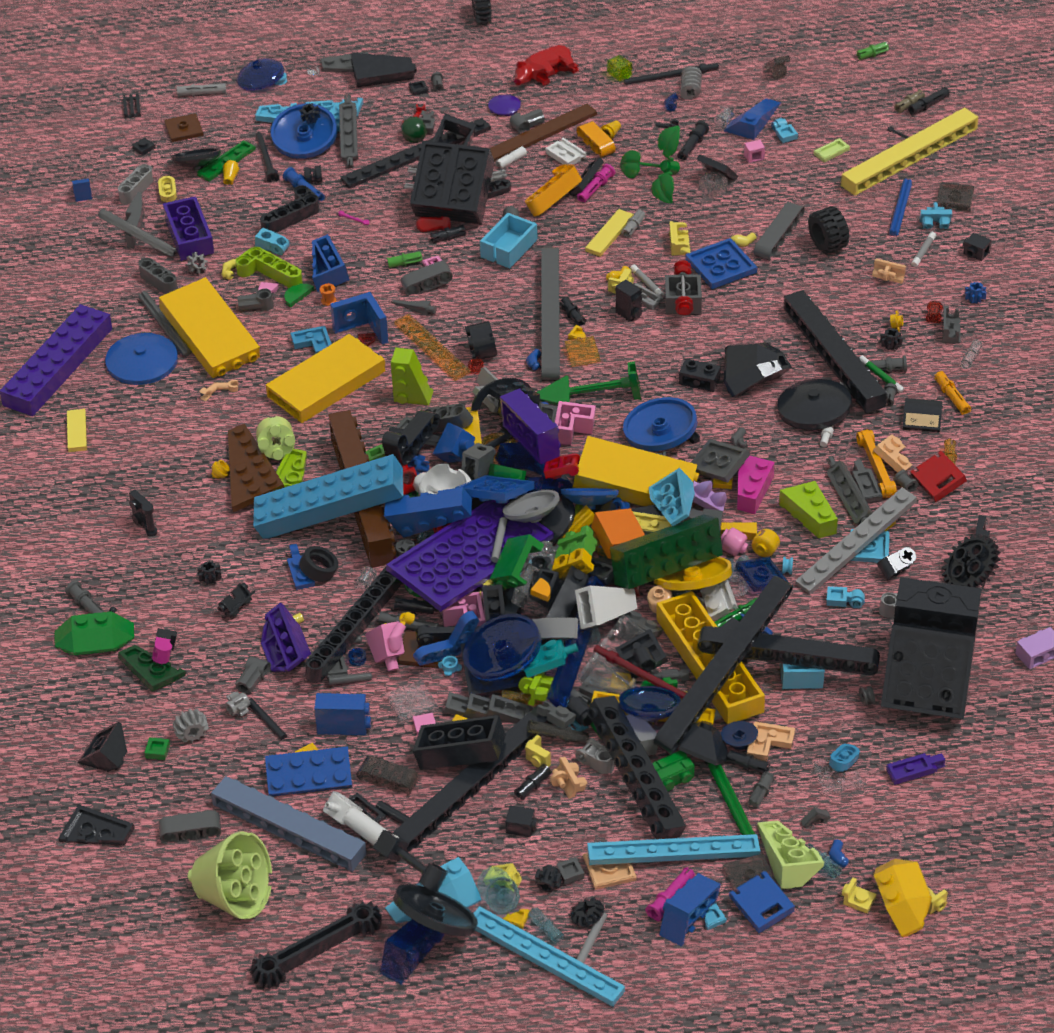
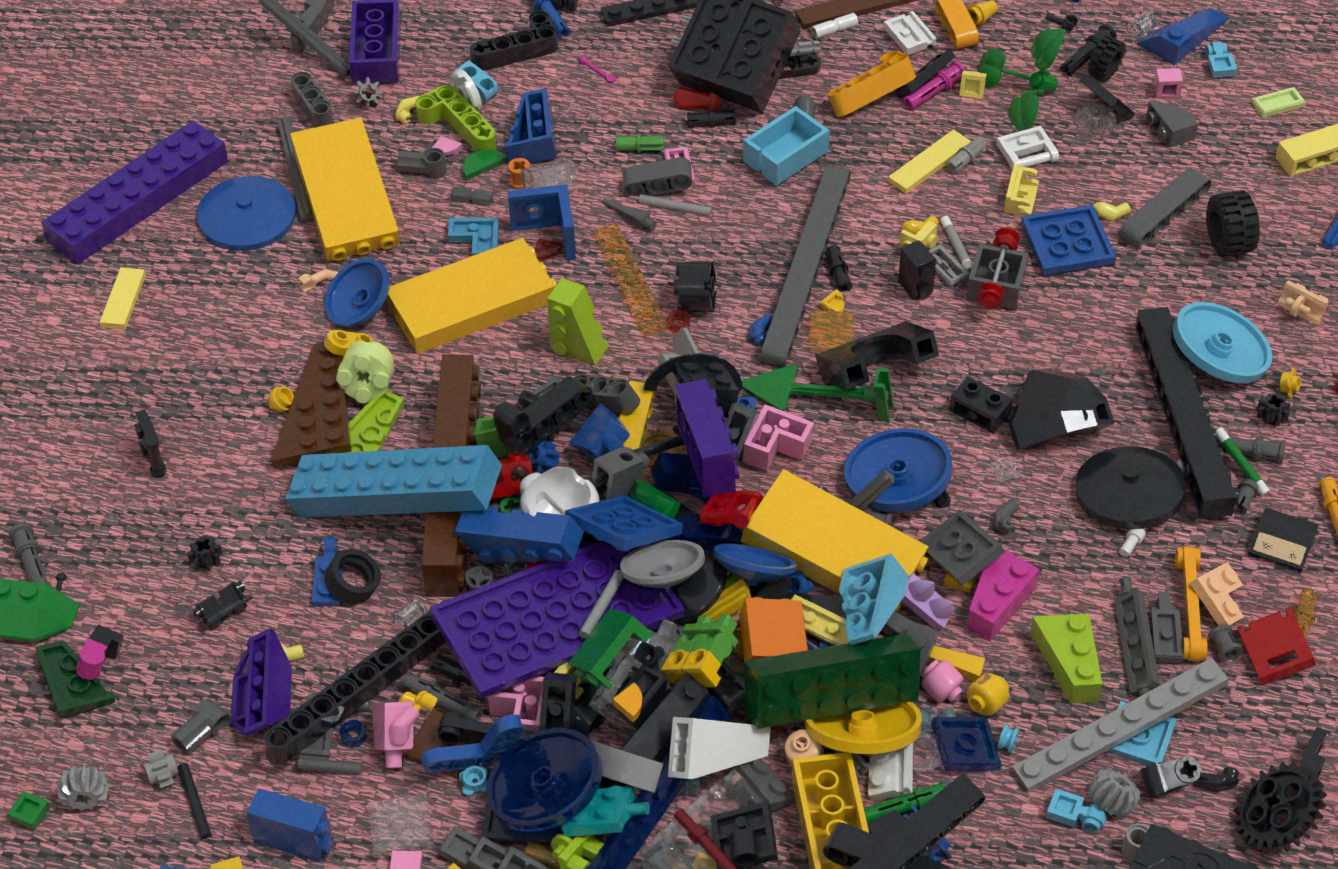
camera: 15 degrees right, 5 degrees up
(246, 391) = (357, 292): none -> blue dish
(249, 424) = (339, 340): none -> yellow plate
(269, 244) = (467, 88): none -> white tile
(293, 316) = (477, 196): none -> dark grey piece
(350, 289) = (550, 174): none -> clear brick
(444, 294) = (675, 205): none -> light grey bar
(606, 365) = (847, 363): none -> black arch
(622, 177) = (972, 84): none -> light yellow tile
(651, 436) = (872, 490): none -> dark grey axle
(672, 207) = (1025, 143): none -> white plate
(708, 142) = (1106, 58): none -> black tyre
(729, 411) = (1008, 464): none -> clear plate
(765, 176) = (1171, 122): none -> dark grey slope
(845, 304) = (1222, 342): none -> medium azure dish
(865, 579) = (1114, 793): none -> light grey gear
(933, 558) = (1213, 781): none -> black arm

